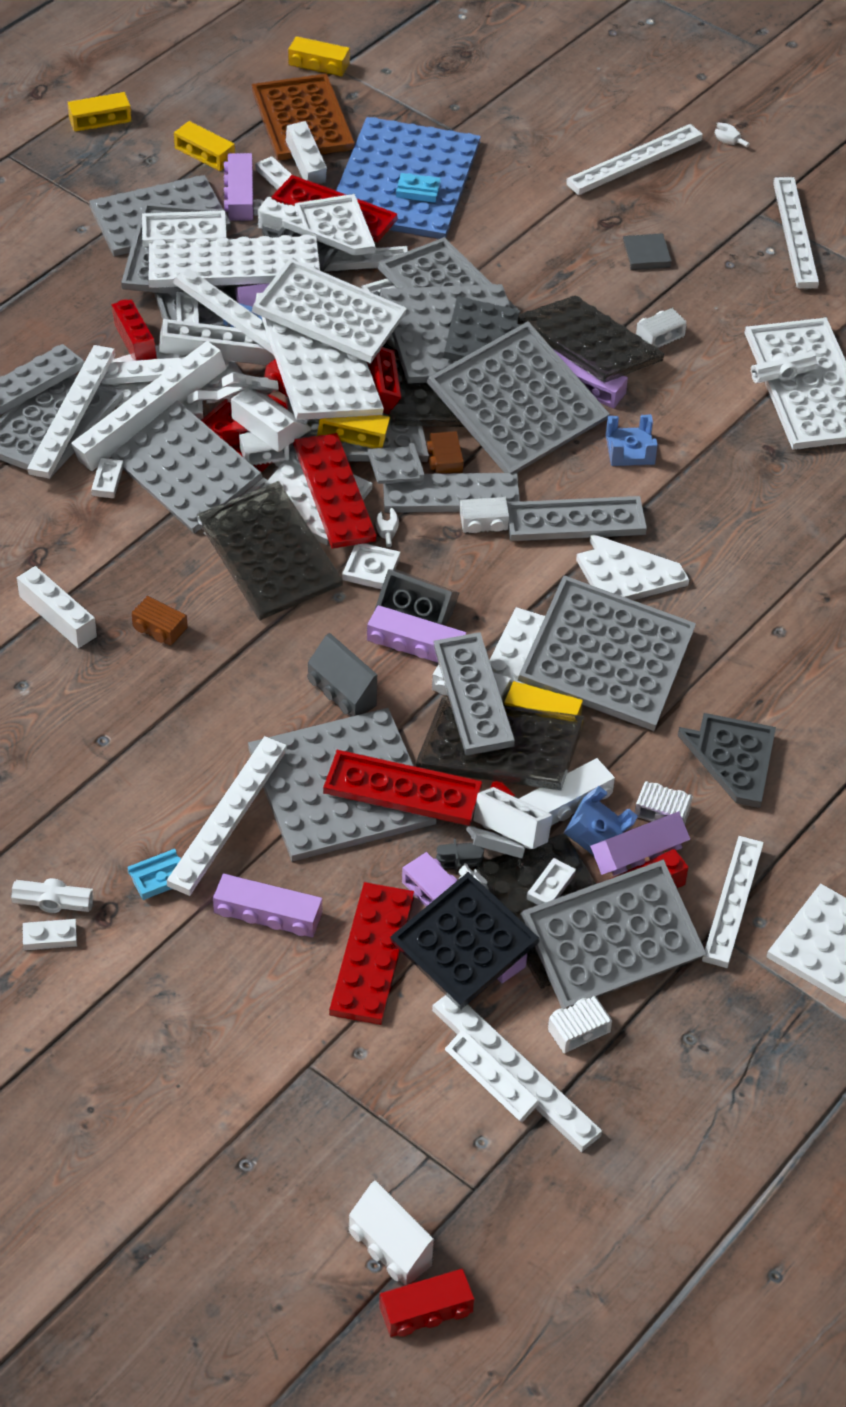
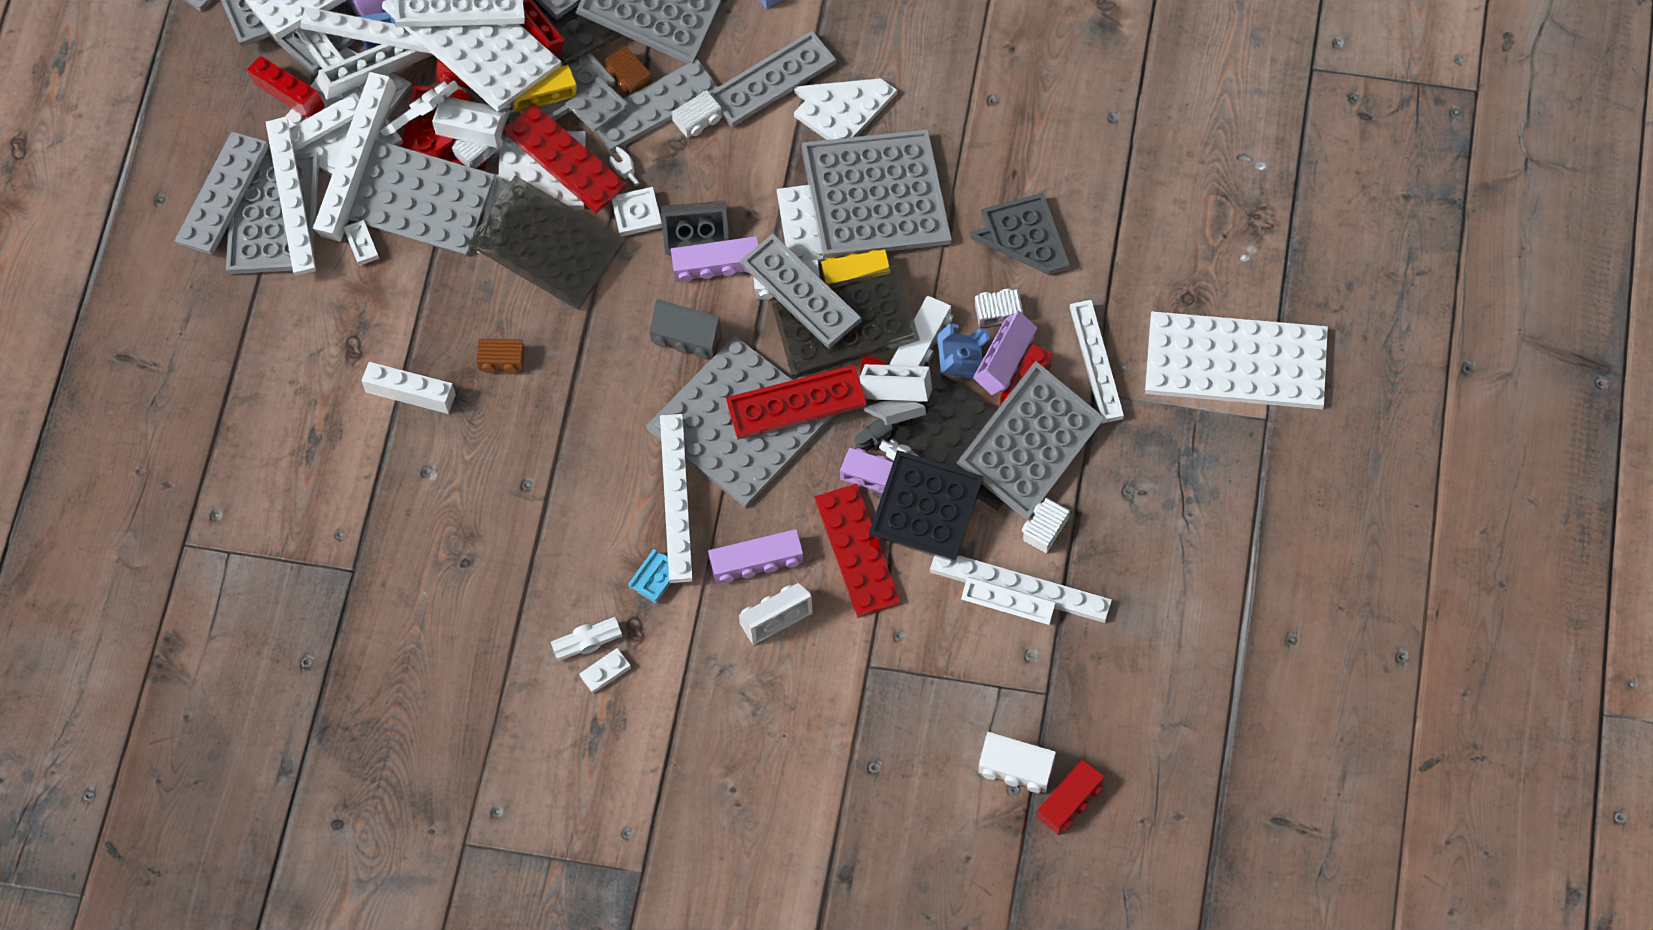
camera: 25 degrees left, 15 degrees up
(248, 966) = (776, 613): none -> white slope
(551, 882) = (959, 423): white plate -> none

